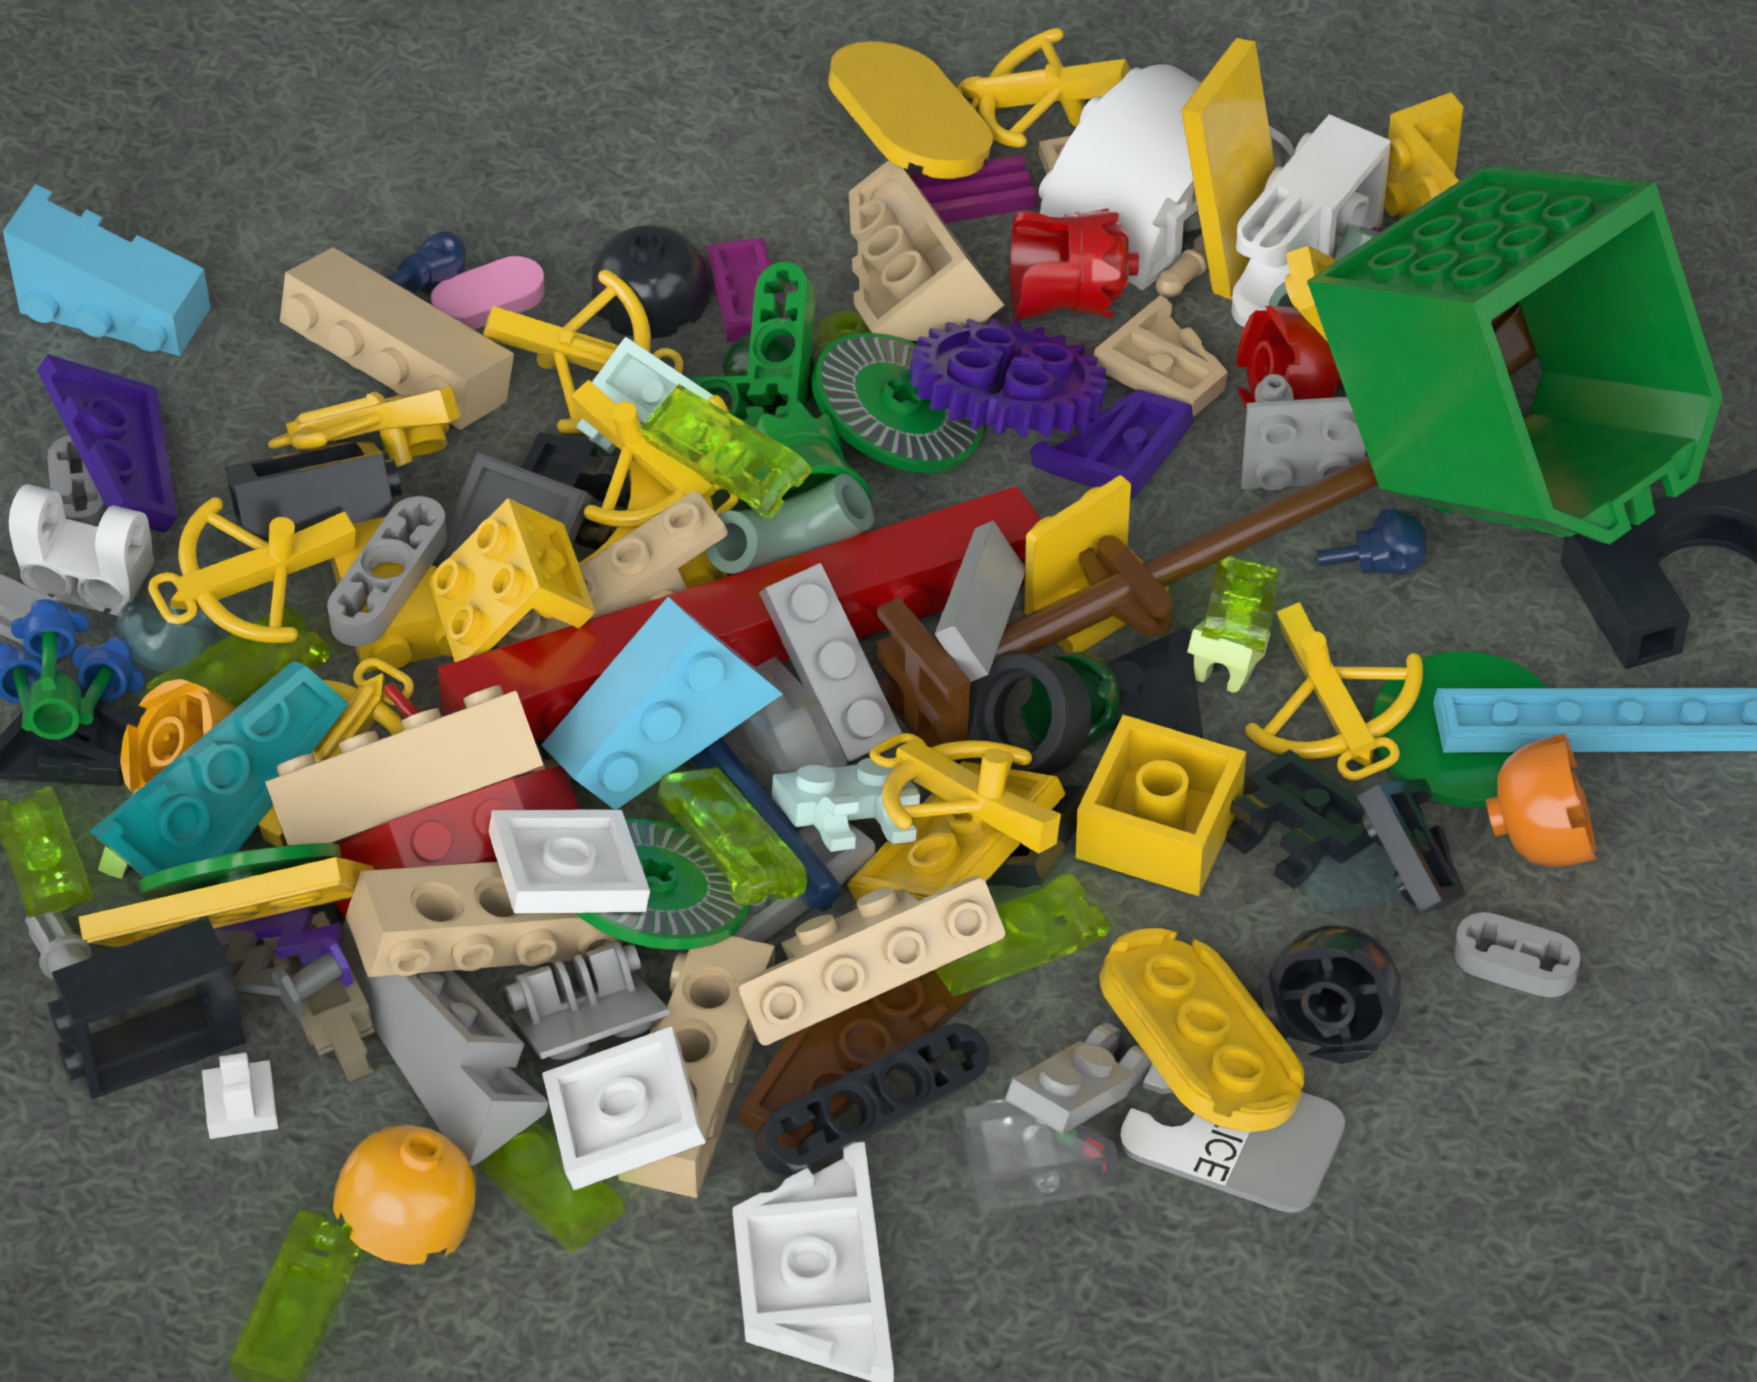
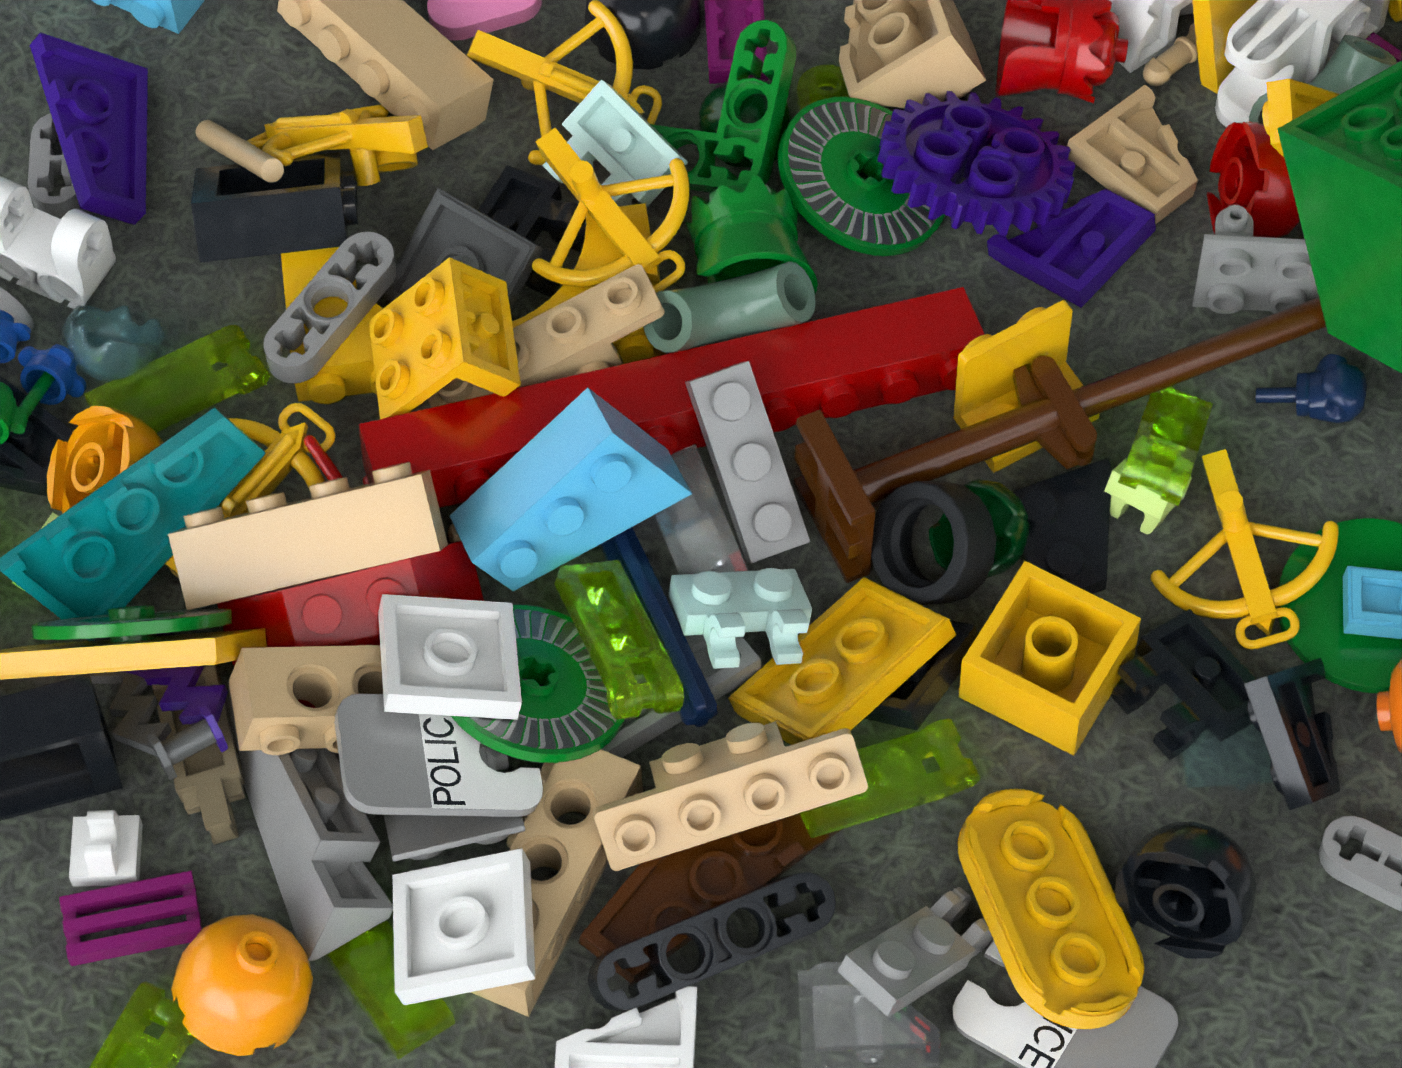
camera: 10 degrees right, 10 degrees up
(268, 443) = (240, 151): none -> tan bar
(269, 561) = (221, 283): yellow piece -> none
(272, 1147) = (125, 895): none -> magenta tile
(559, 962) = (422, 766): none -> piece
(724, 450) = (673, 224): clear neon green plate -> none
(964, 790) = (859, 630): yellow piece -> none
(980, 601) = (902, 420): light grey tile -> none

